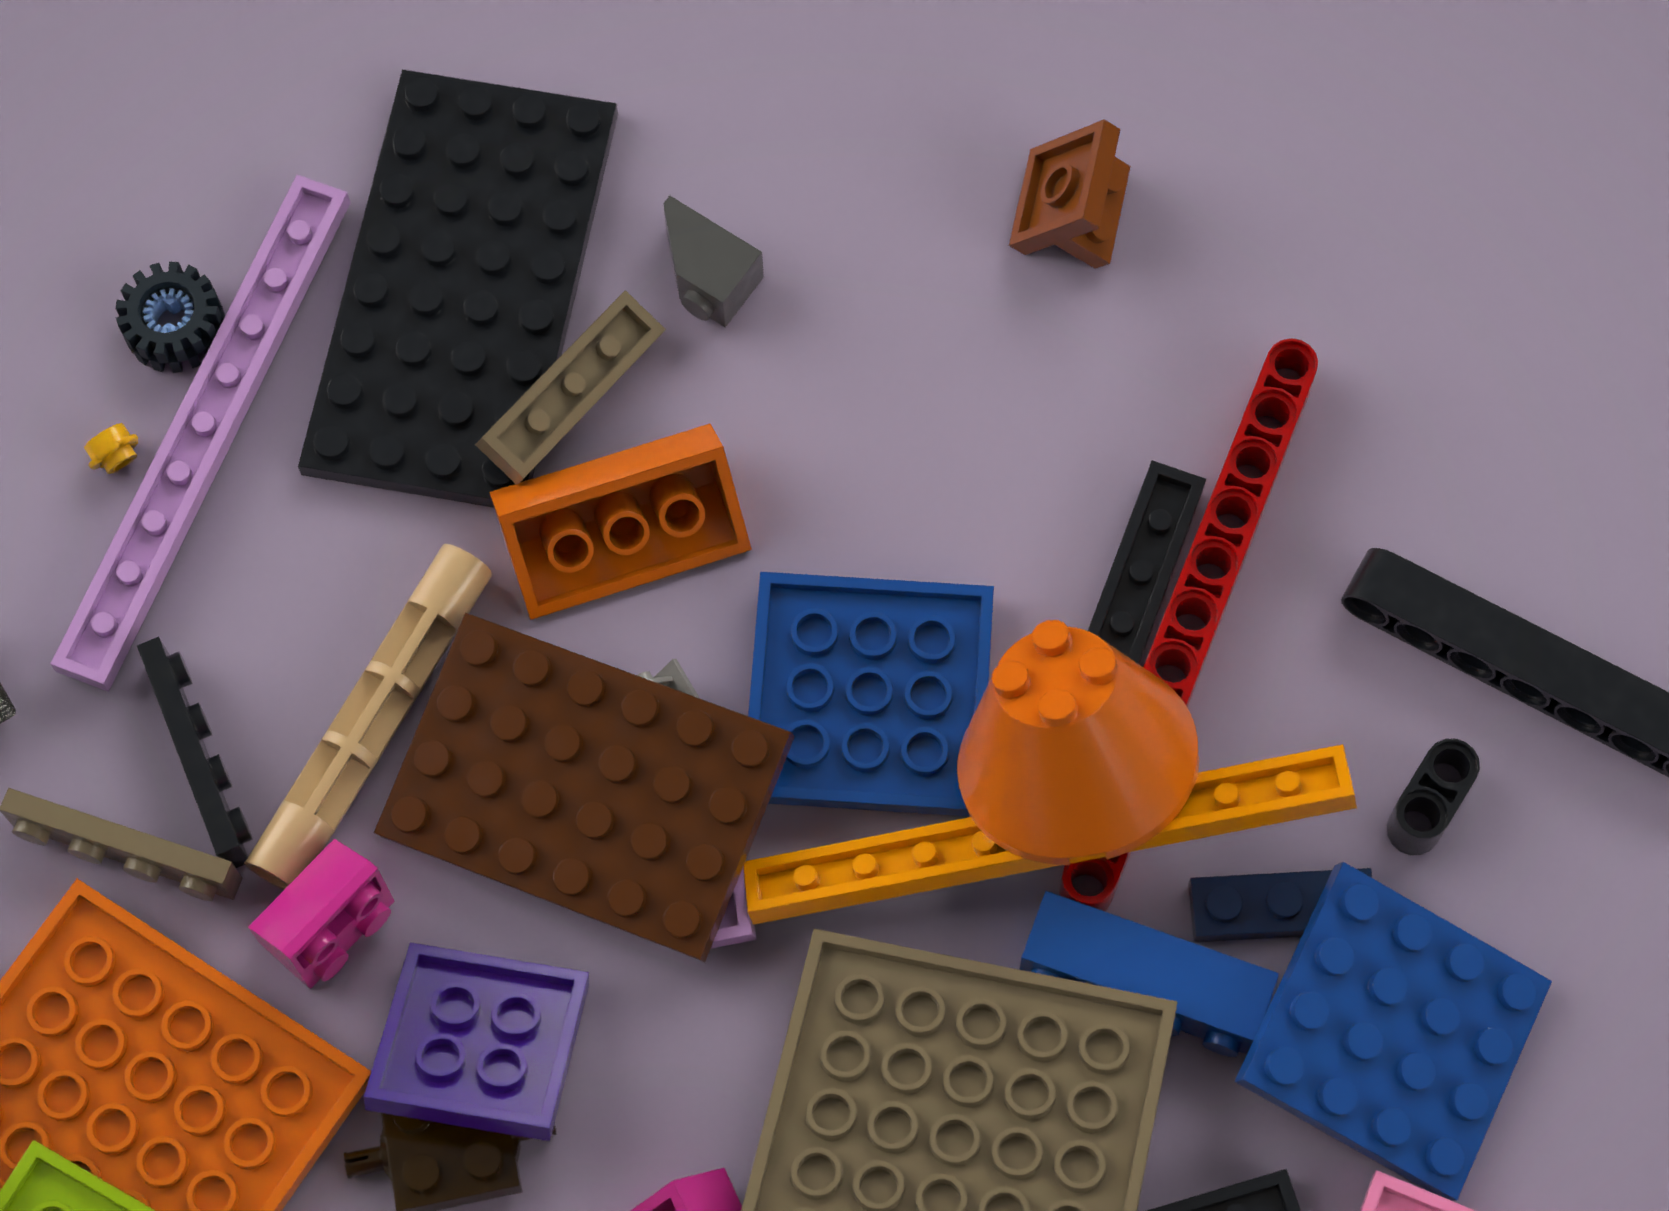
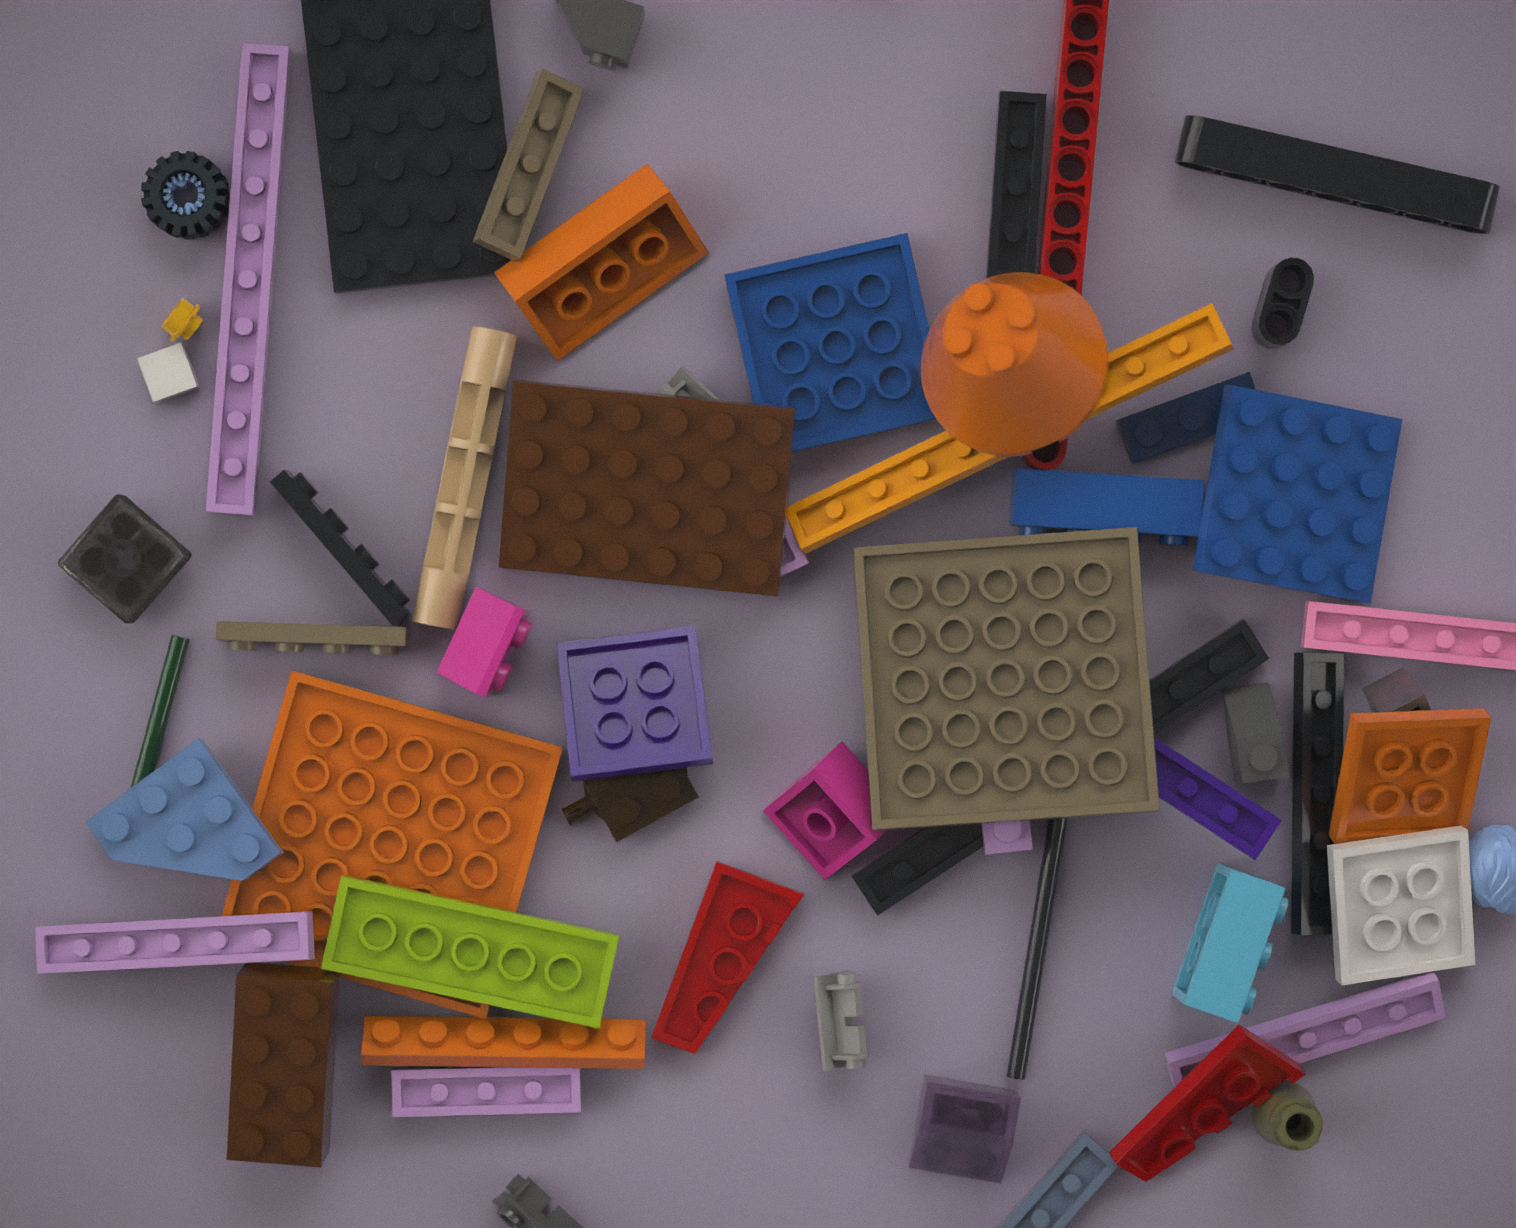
camera: 15 degrees left, 20 degrees up
(73, 503) = (168, 372): none -> white tile

